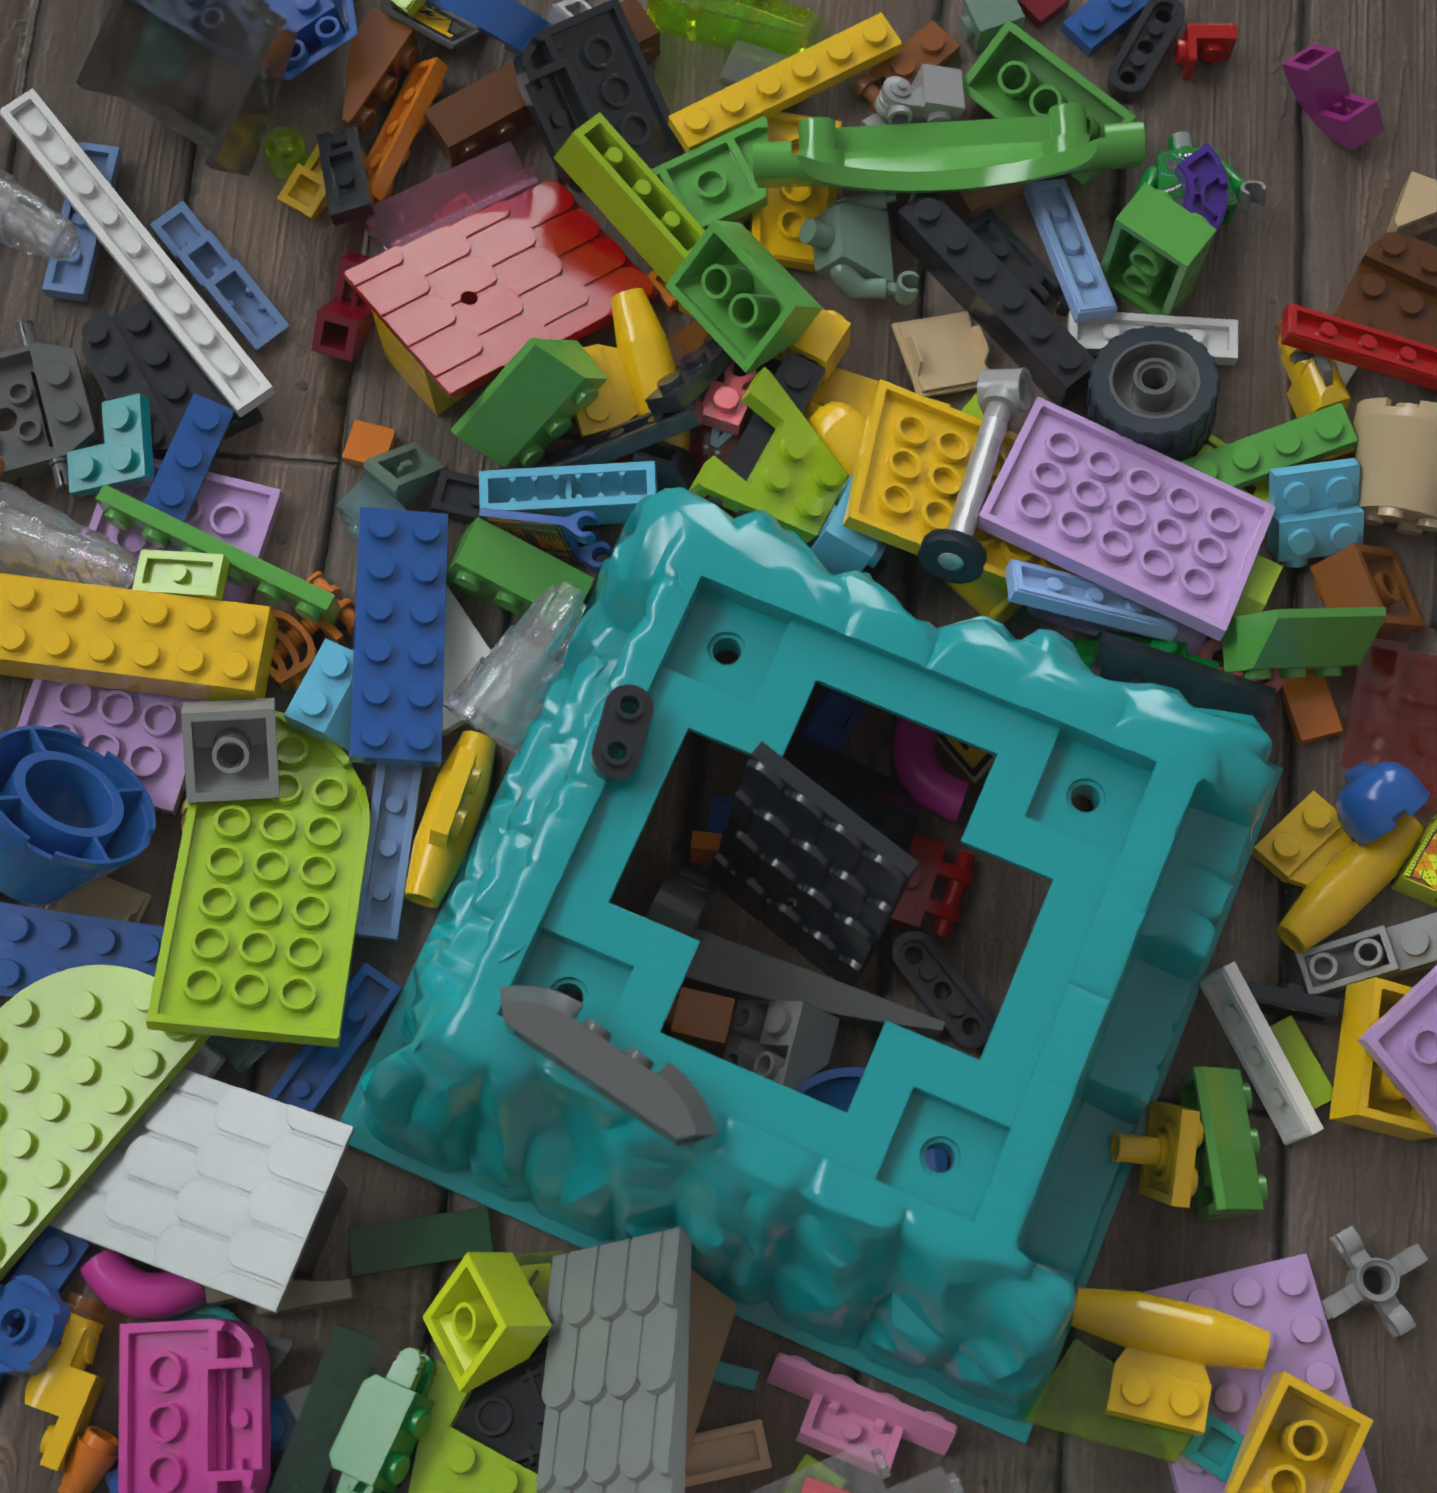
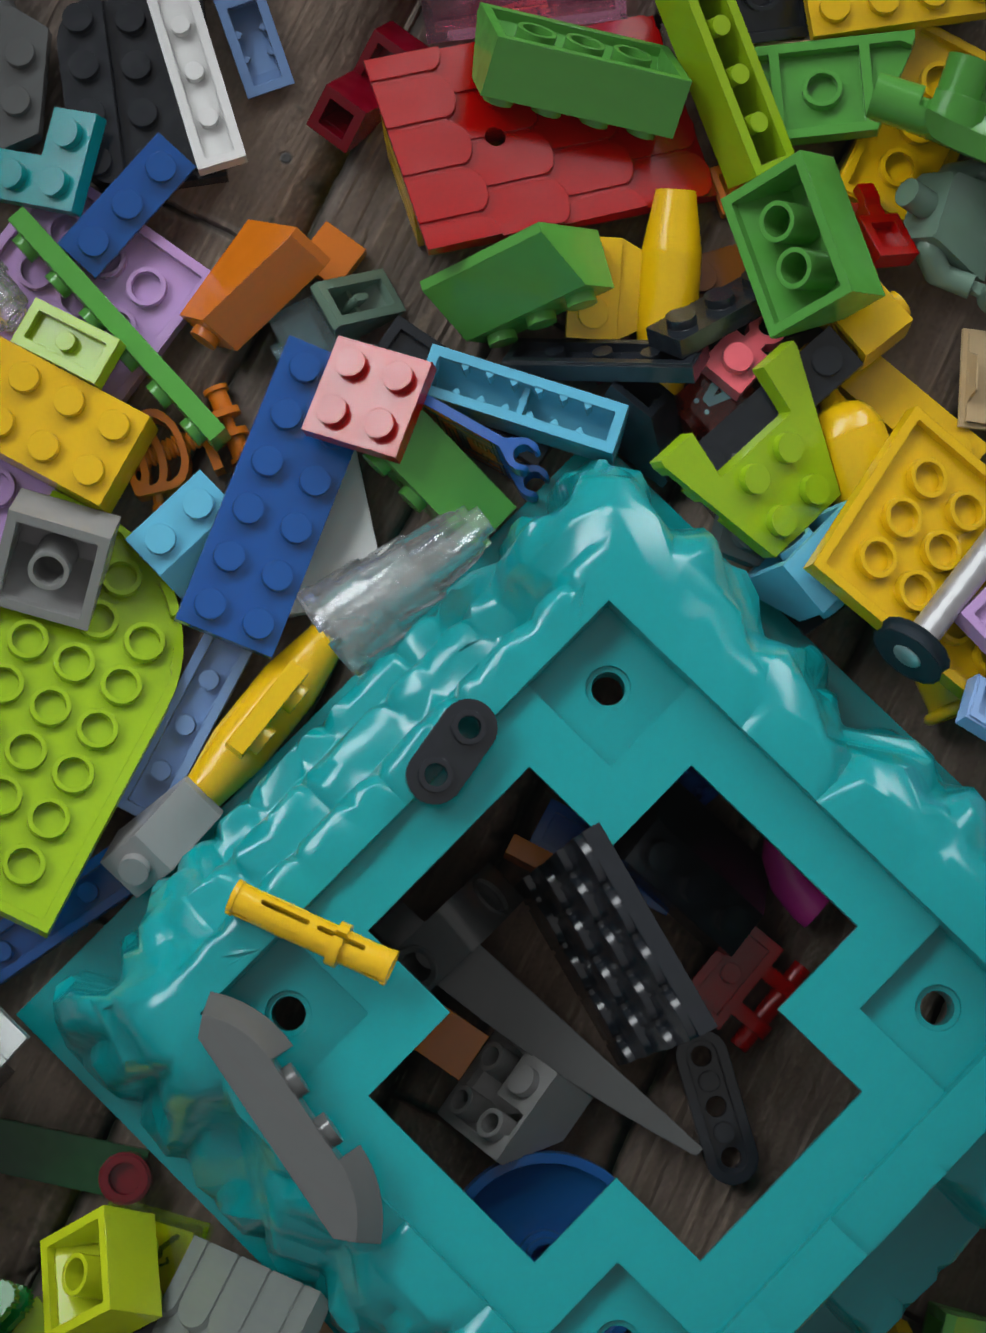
camera: 25 degrees right, 10 degrees up
(314, 481) = (252, 283): none -> orange slope
(401, 938) = (160, 836): none -> light grey slope
(444, 529) = (369, 399): none -> plate
(476, 1232) = (125, 1178): none -> dark red tile
(516, 231) = (577, 72): none -> bright green slope
(573, 912) = (332, 941): none -> yellow pin
(803, 268) = (883, 233): none -> red plate

